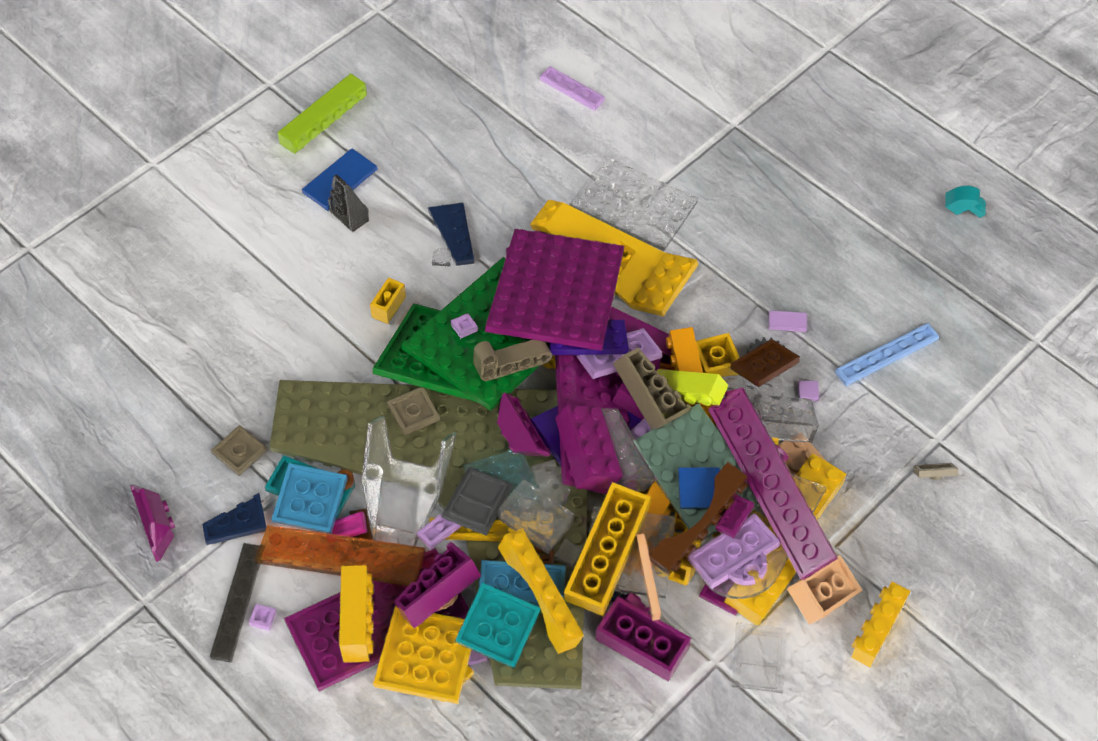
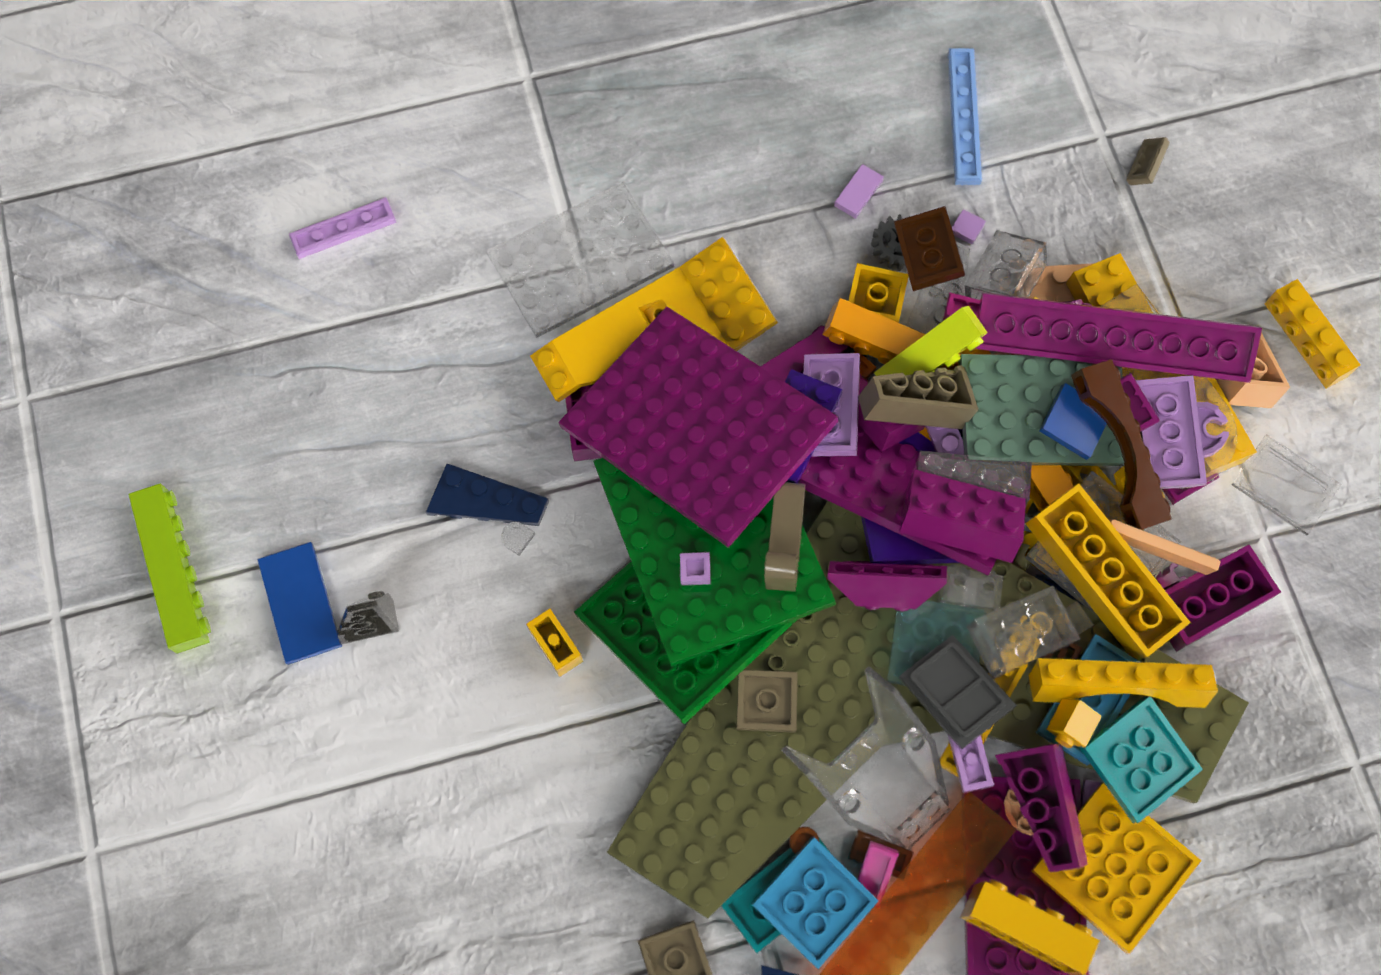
camera: 60 degrees left, 15 degrees up
(493, 569) = (1073, 723): none -> yellow brick

